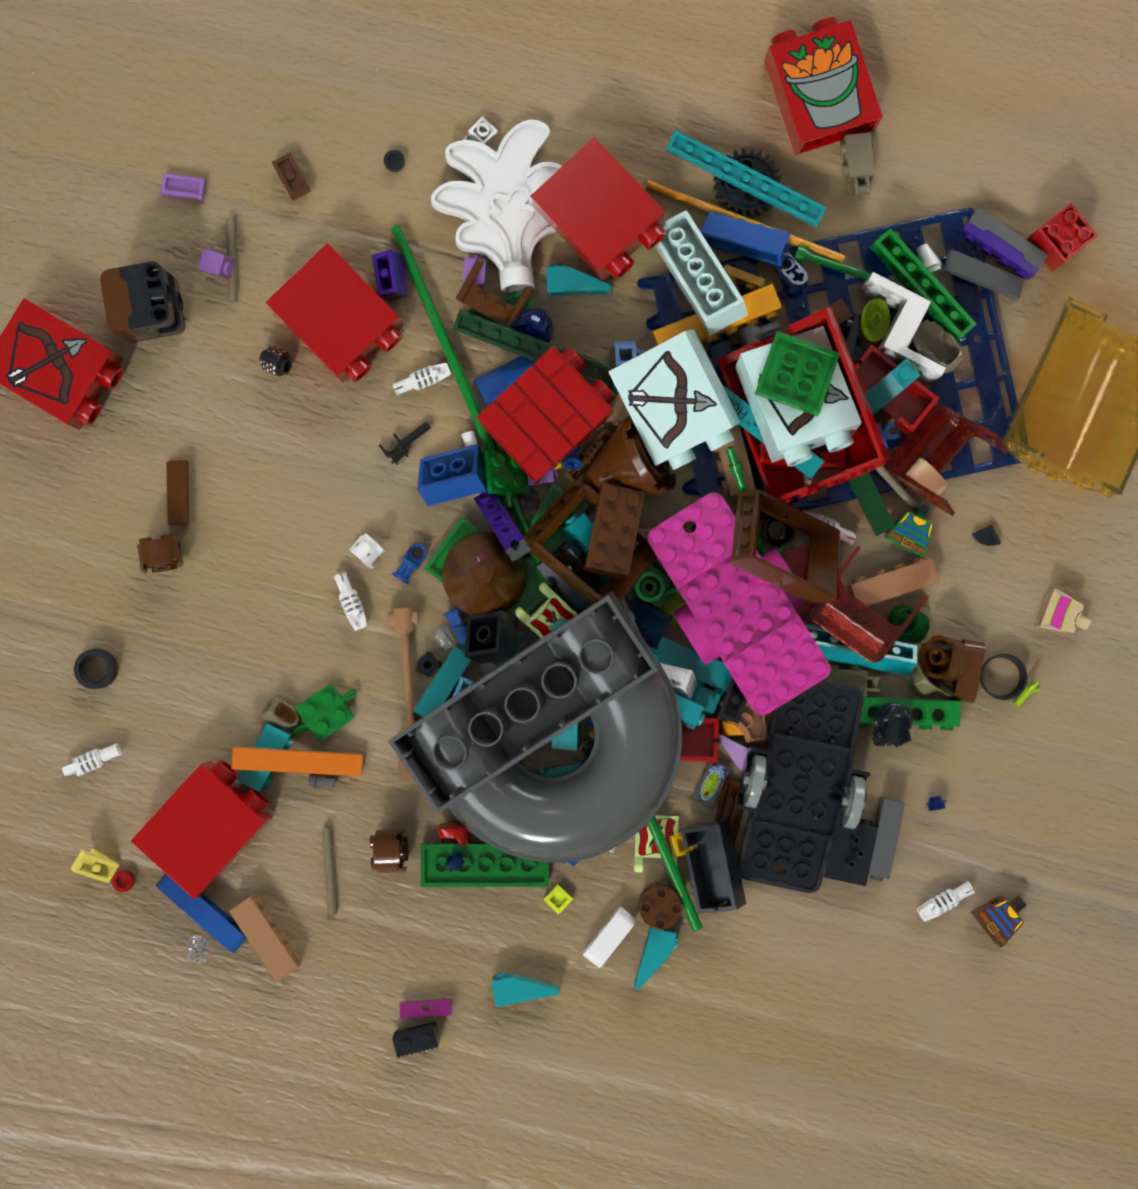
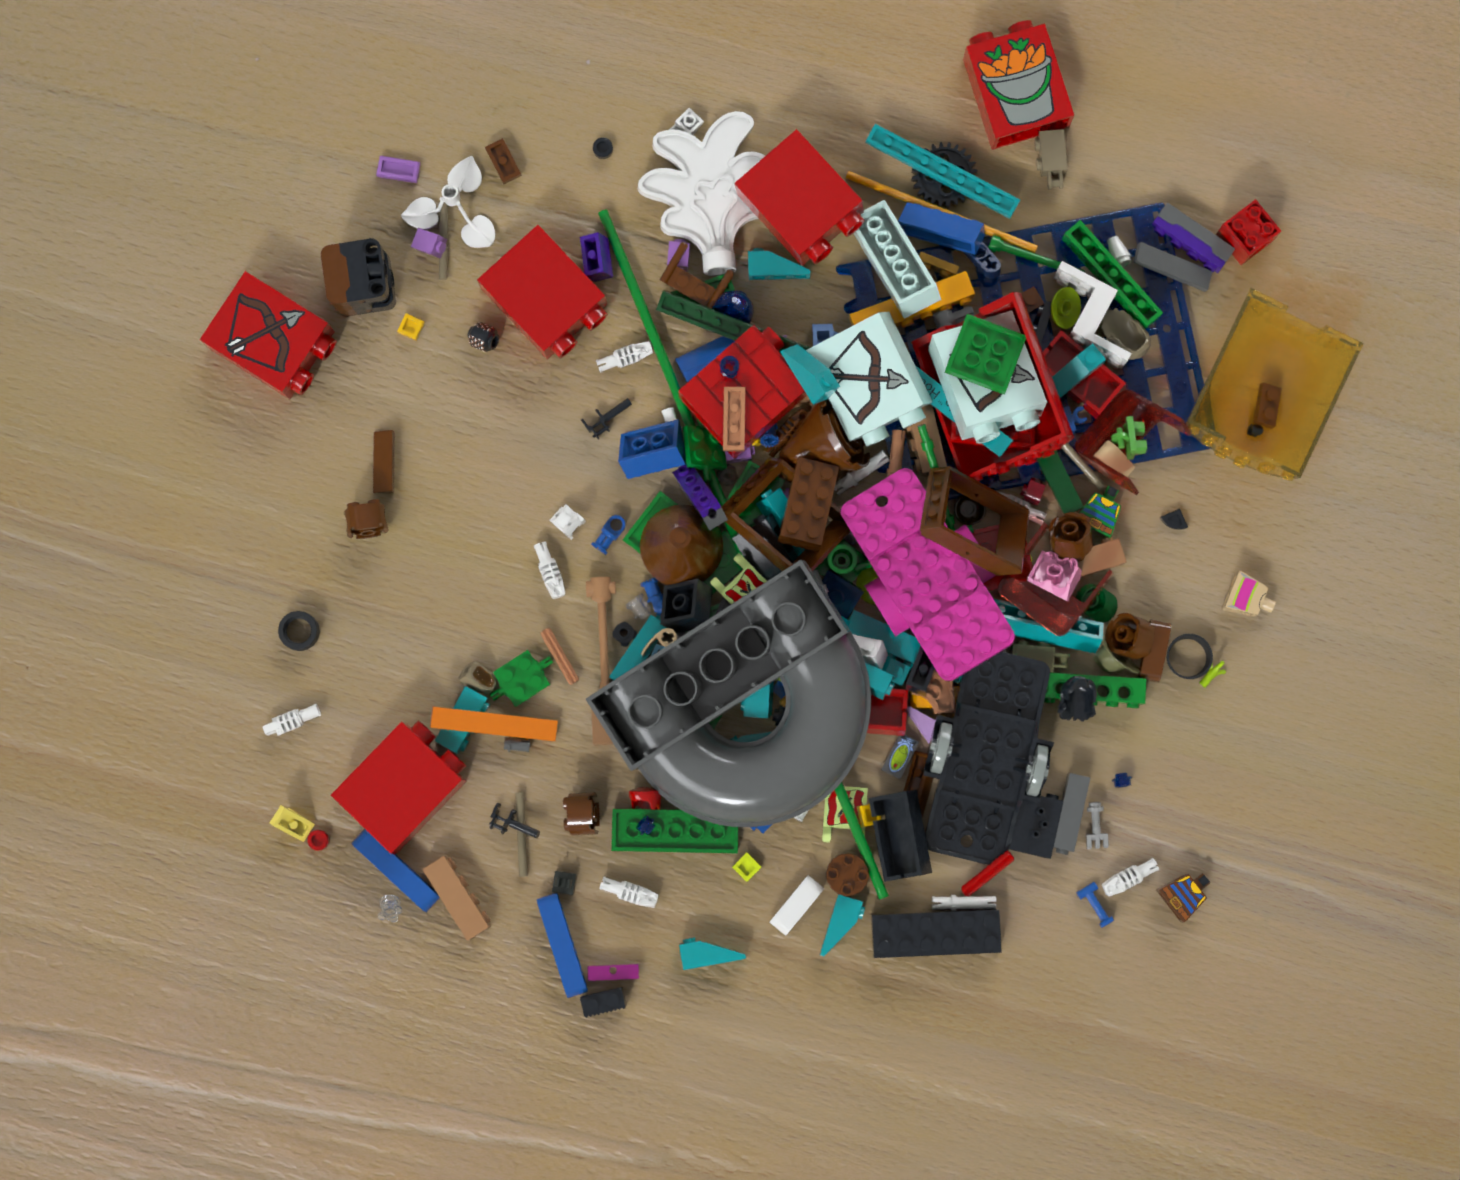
camera: 10 degrees right, 5 degrees down
(201, 351) = (411, 327): none -> yellow tile
(210, 230) = (465, 177): none -> white plant
(318, 860) = (511, 822): none -> black piece
(363, 689) = (559, 656): none -> nougat axle
(373, 918) = (564, 882): none -> pearl dark grey tile
(373, 982) = (562, 945): none -> blue beam
(441, 927) = (630, 892): none -> white hinge
(464, 669) = (659, 636): none -> tan panel
(532, 385) = (732, 361): none -> clear blue bush
(535, 446) = (734, 419): none -> nougat plate
(614, 396) = (811, 373): none -> teal slope
(658, 500) = (852, 478): none -> white pin
(703, 474) = (896, 453): none -> nougat pin
(750, 963) = (936, 933): none -> black brick
(777, 930) = (964, 902): none -> white pin
(802, 901) = (987, 873): none -> red axle
(843, 510) = (1033, 491): none -> dark red plate
(868, 597) = (1055, 574): none -> bright pink slope
(883, 558) = (1071, 536): none -> reddish brown brick
(903, 917) = (1088, 893): none -> blue piece
(909, 833) = (1095, 808): none -> light grey hinge
(940, 455) = (1131, 429): none -> bright green hips
(1070, 442) = (1254, 430): none -> black hand
(1081, 417) = (1267, 405): none -> reddish brown plate

